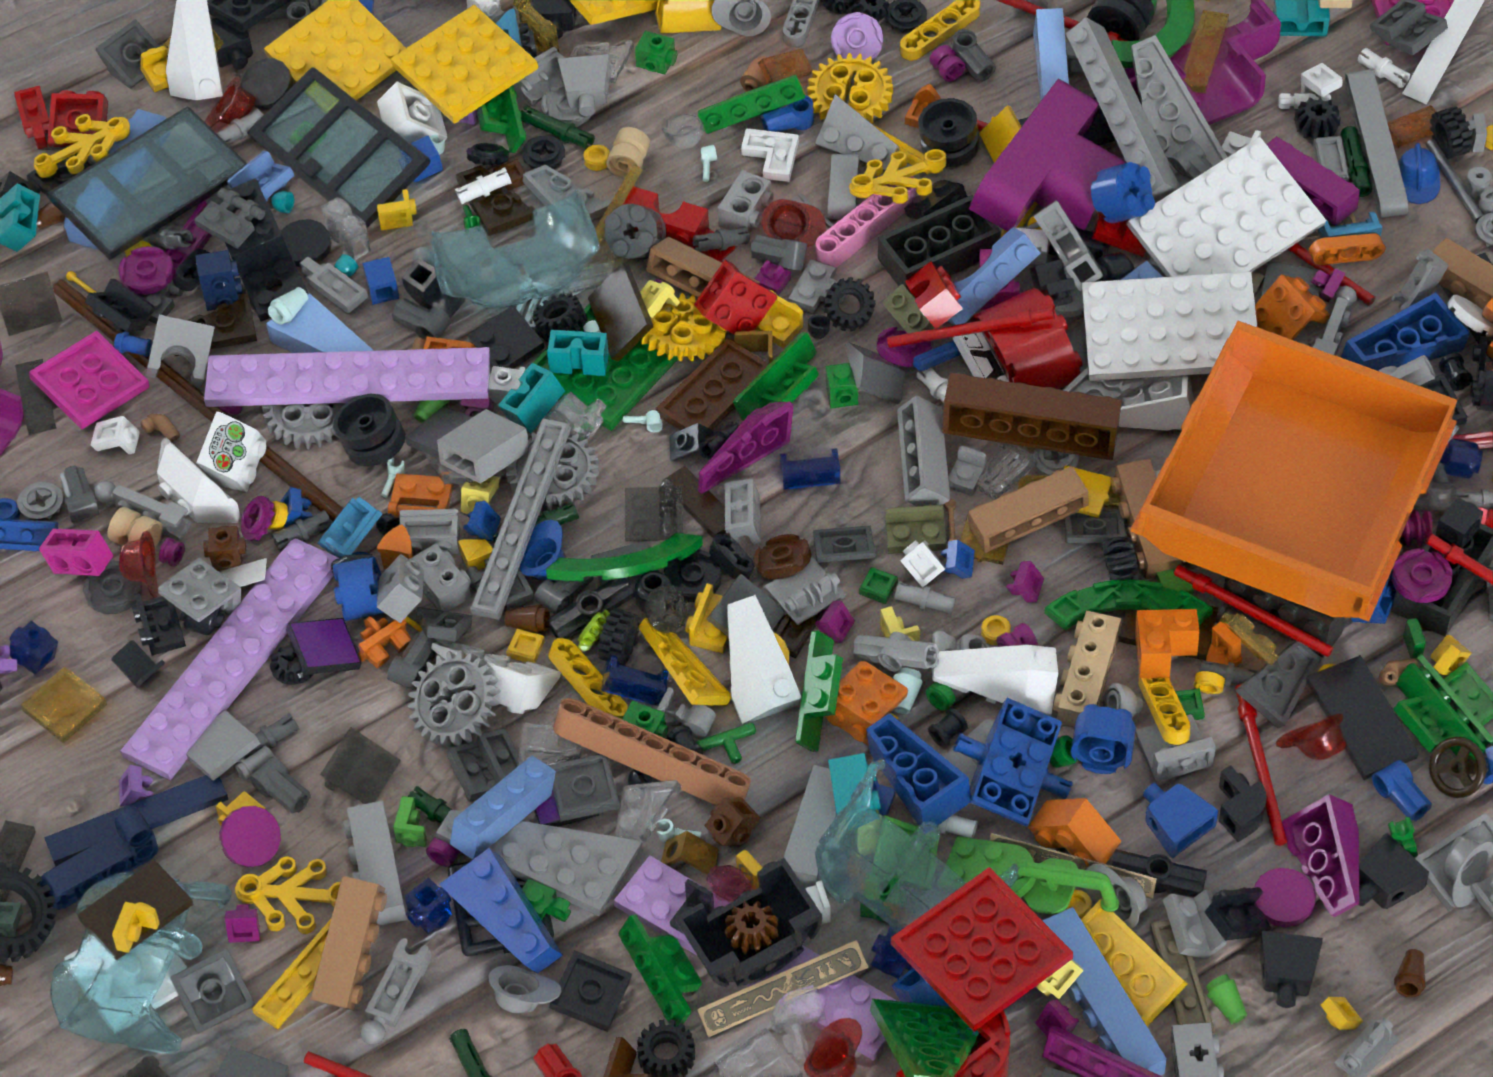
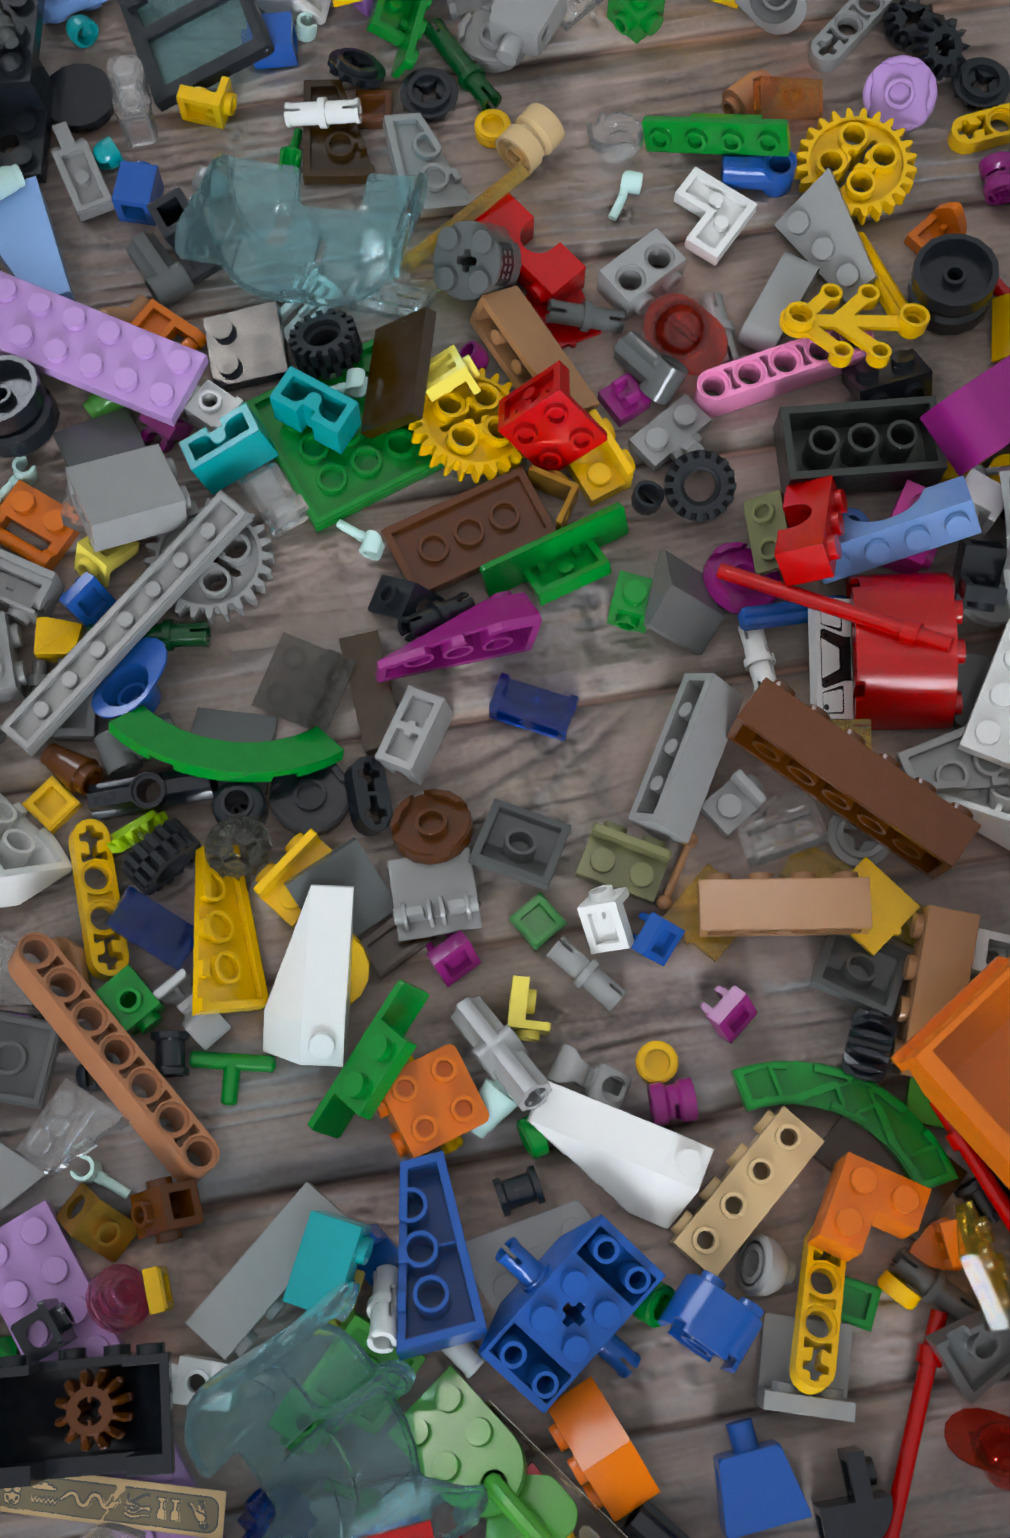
camera: 20 degrees right, 20 degrees up
(900, 807) = (383, 1310): none -> white pin

